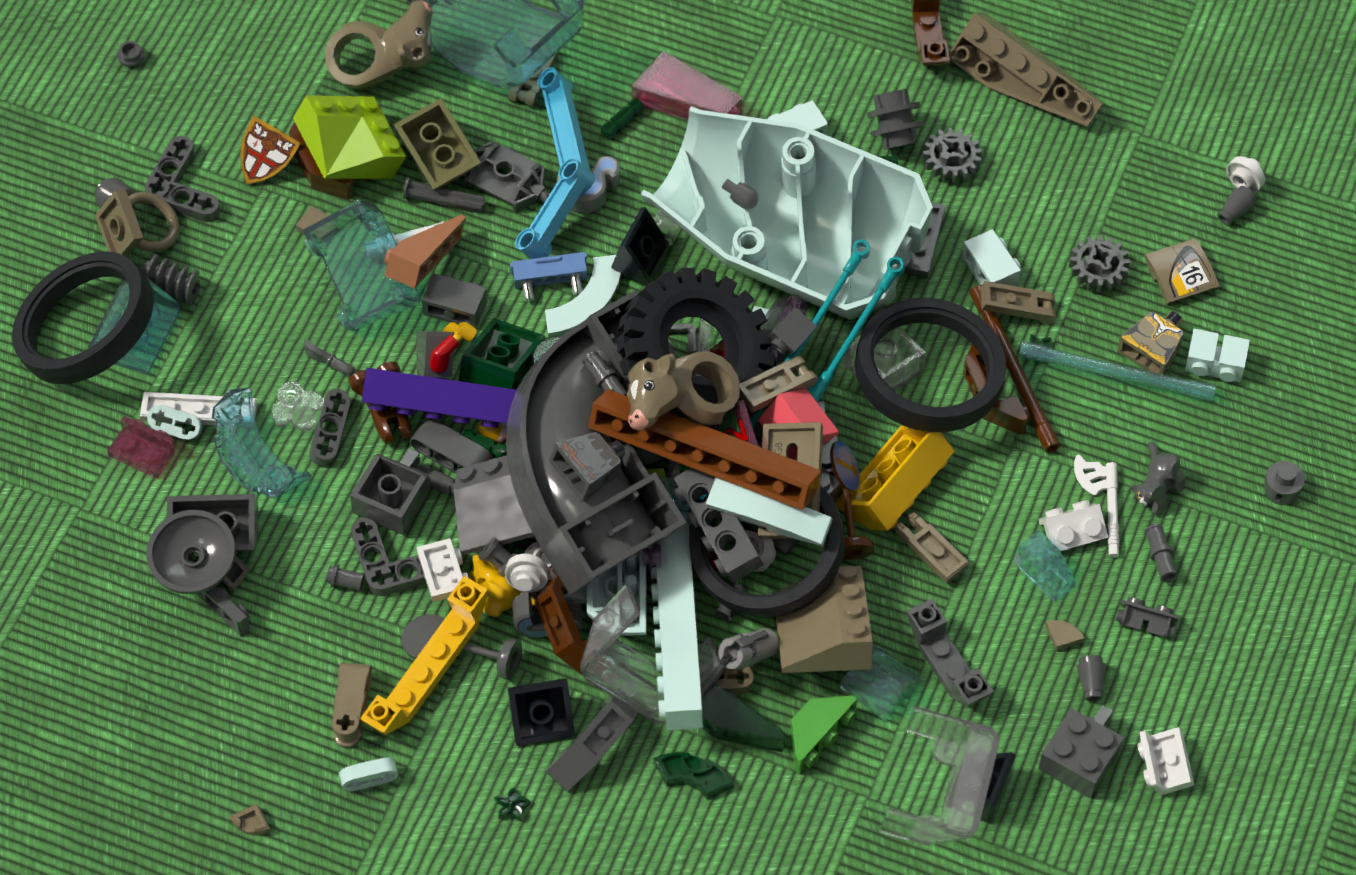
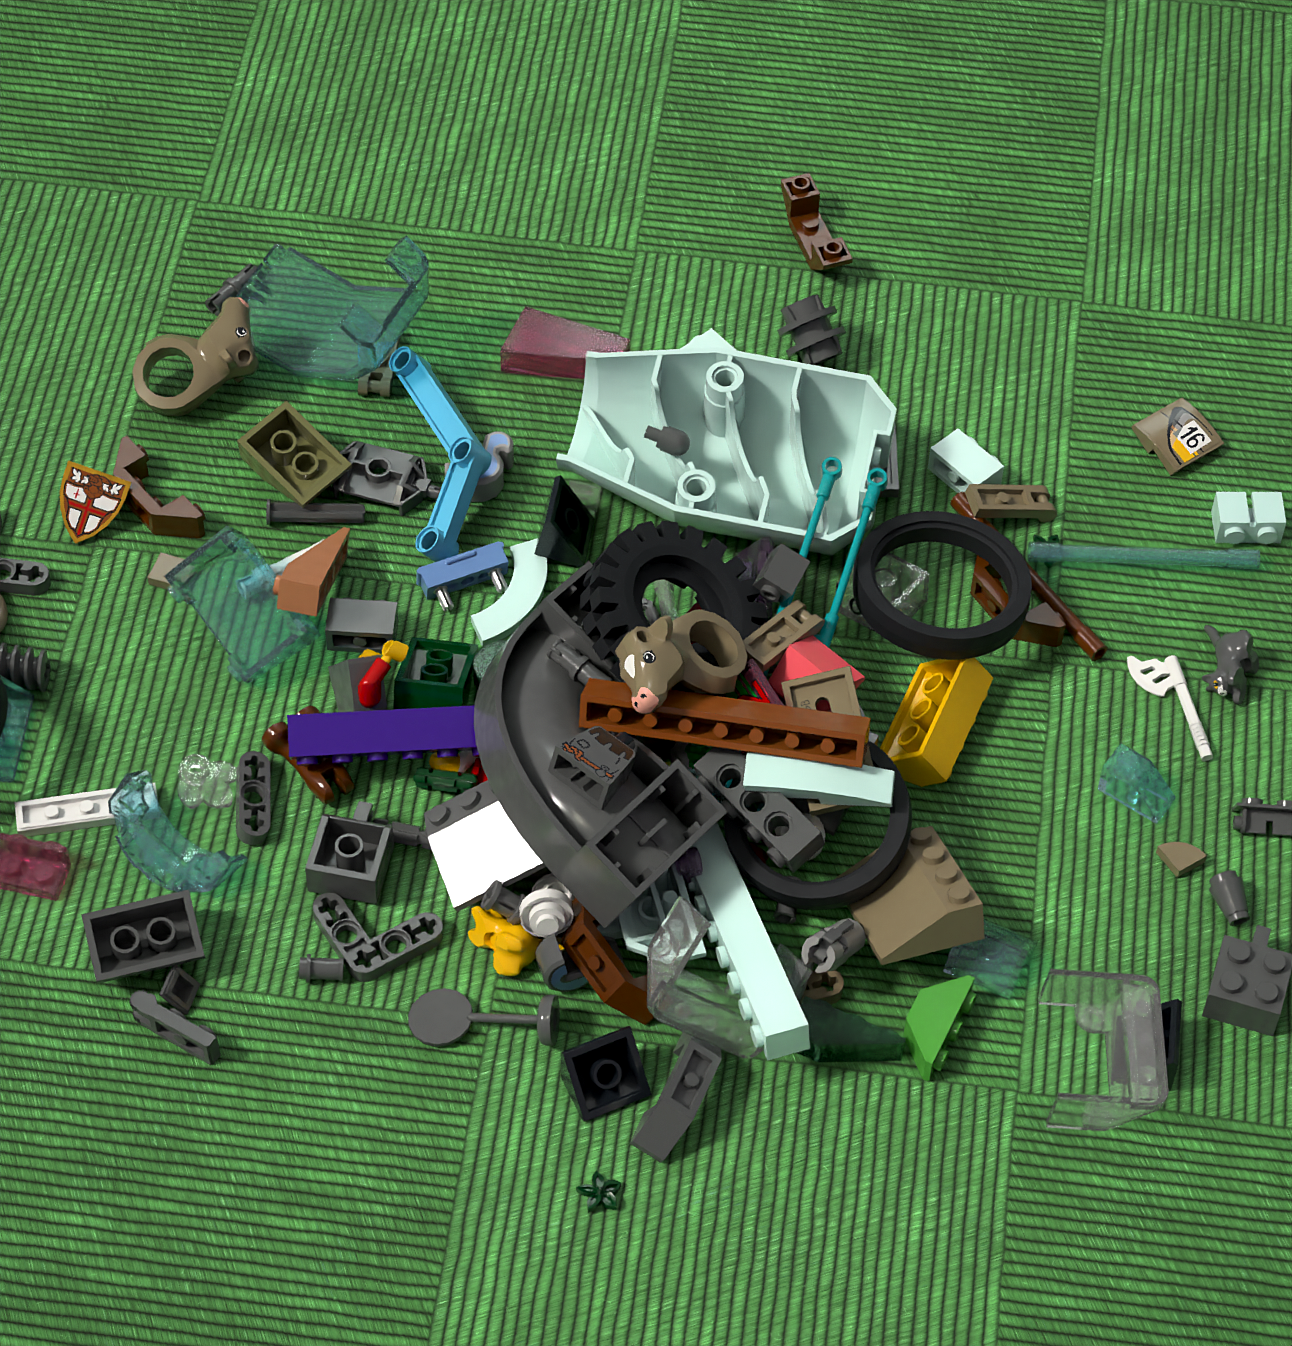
camera: 15 degrees left, 5 degrees down
(176, 415) = (63, 820): light aqua beam -> none
(187, 536) = (128, 953): dark grey dish -> none
(250, 821) = (285, 1283): dark tan tile -> none
(331, 360) = (219, 718): dark grey piece -> none
(349, 137) = (187, 465): lime slope -> none
(350, 703) = (370, 1114): dark tan piece -> none
(368, 774) = (416, 1194): light aqua beam -> none
(433, 661) = (458, 1040): yellow slope -> none
(440, 568) = (438, 933): white bracket -> none
(447, 446) = (402, 791): dark grey beam -> none
(622, 118) = (496, 390): dark green axle -> none
(693, 772) = (807, 1106): dark green tile -> none
(847, 474) = (922, 803): reddish brown piece -> none
(932, 548) = (1000, 791): dark tan hinge -> none
(943, 657) = (1080, 935): dark grey slope -> none
(952, 155) = (885, 359): dark grey gear -> none
(1020, 71) = (932, 259): dark tan wedge -> none
(1075, 526) = (1157, 732): white bracket -> none
(1099, 264) = (1085, 444): dark grey gear -> none
(1153, 341) = (1173, 516): dark tan torso -> none
(1161, 553) = (1260, 743): dark grey pin -> none
(1237, 204) = (1214, 353): dark grey cone -> none
(1246, 173) = (1214, 320): white plate -> none

